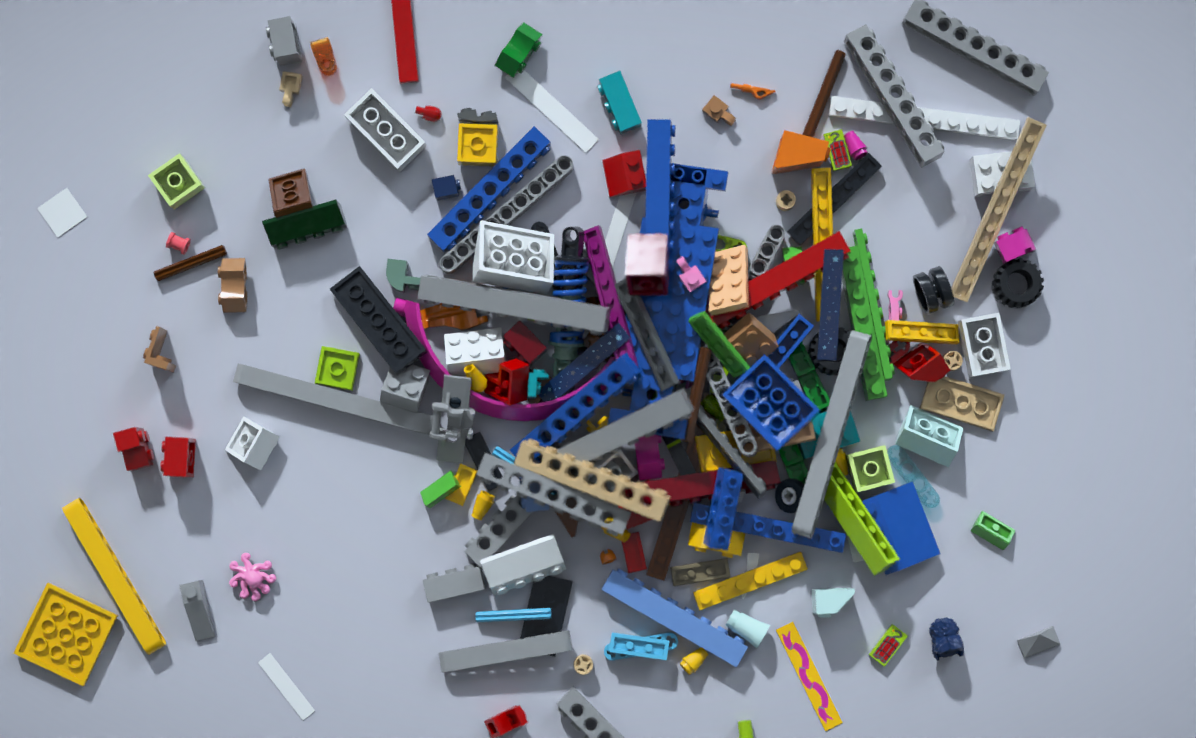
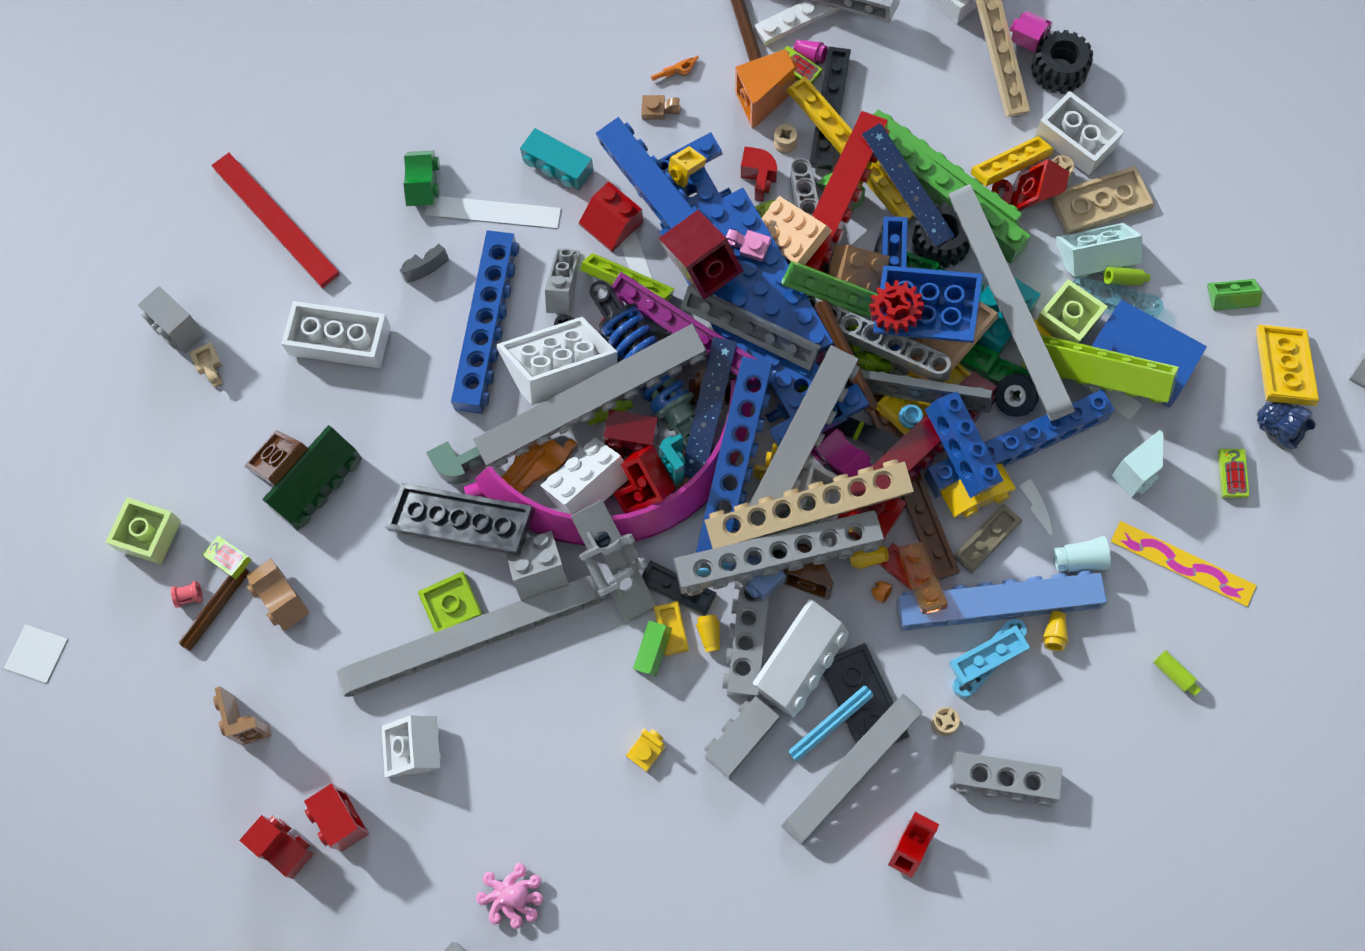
camera: 30 degrees left, 15 degrees down
(218, 236) = (227, 557): none -> tile
(324, 53) = (224, 311): clear orange piece -> none
(392, 548) = (646, 749): none -> yellow bracket
(429, 113) = (371, 293): red cylinder -> none
(446, 187) = (438, 348): dark blue brick -> none
(477, 144) = (442, 285): yellow container -> none
(478, 381) = (612, 501): yellow cone -> none
(510, 205) = (520, 321): light grey beam -> none
(560, 197) = (561, 281): none -> light grey slope
(596, 216) = (608, 271): none -> lime plate
(636, 569) = (922, 578): none -> clear orange plate
(690, 186) = (685, 164): none -> yellow bracket
(709, 462) = (910, 416): none -> medium azure plate
(750, 580) = (1044, 511): yellow plate -> none
(753, 210) = (759, 166): none -> red brick
(754, 387) = (898, 310): none -> red gear
(895, 312) = (964, 157): bright pink plate -> none
(929, 467) = (1125, 276): none -> lime cylinder
(933, 290) = (991, 115): black wheel -> none
(979, 603) = (1287, 365): none -> yellow tile

